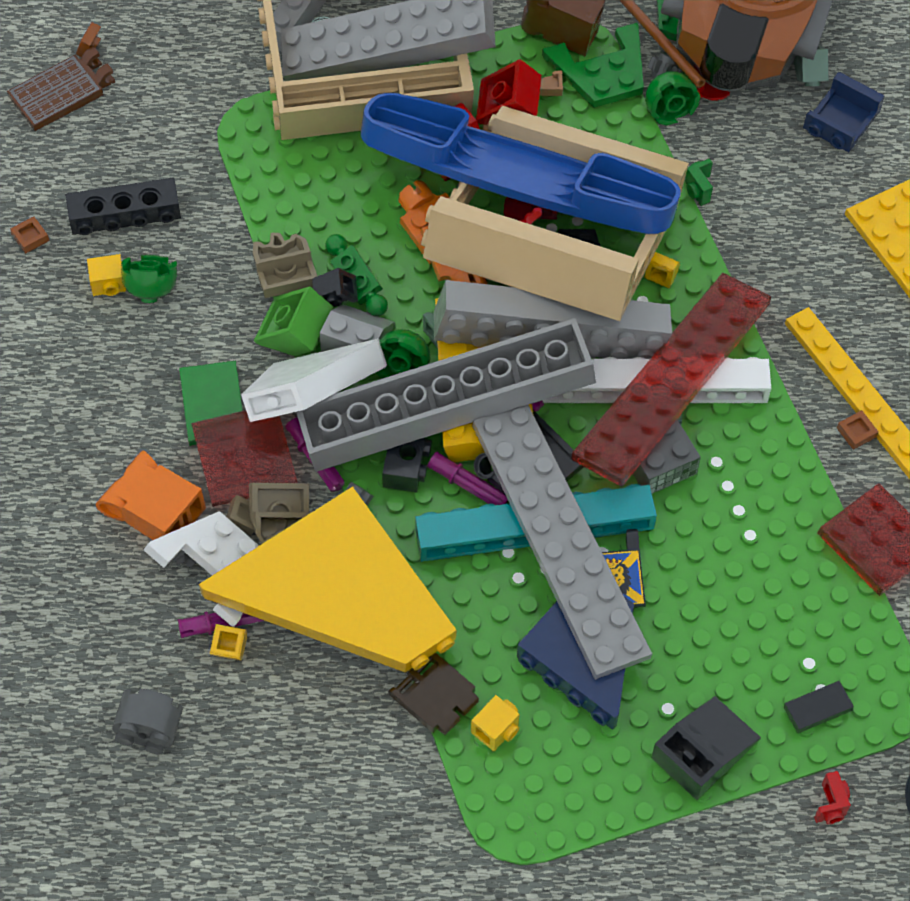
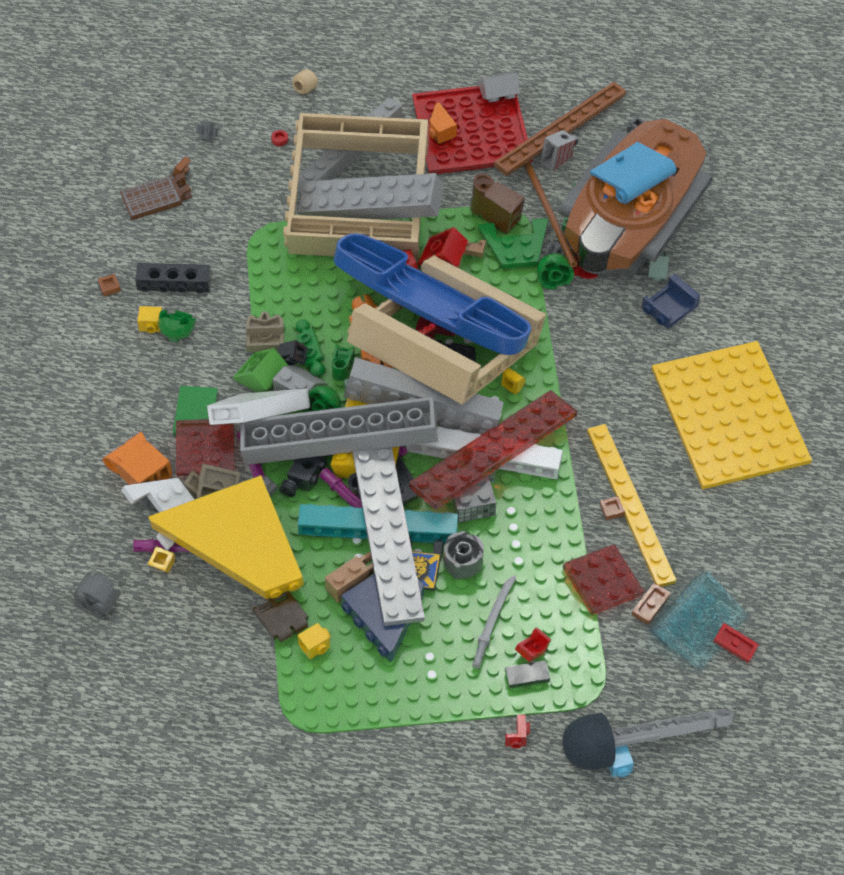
camera: 15 degrees right, 5 degrees down
(388, 493) = (288, 488): none -> black bush
(409, 284) = (342, 362): none -> green piece
(518, 613) = (348, 576): none -> medium nougat hinge
(675, 545) = (463, 555): none -> dark grey brick
(697, 182) = (555, 328): green bracket -> none
(704, 746) = (443, 682): black slope -> none
(741, 668) = (484, 639): none -> light grey sword
(816, 661) = (534, 645): none -> red bracket

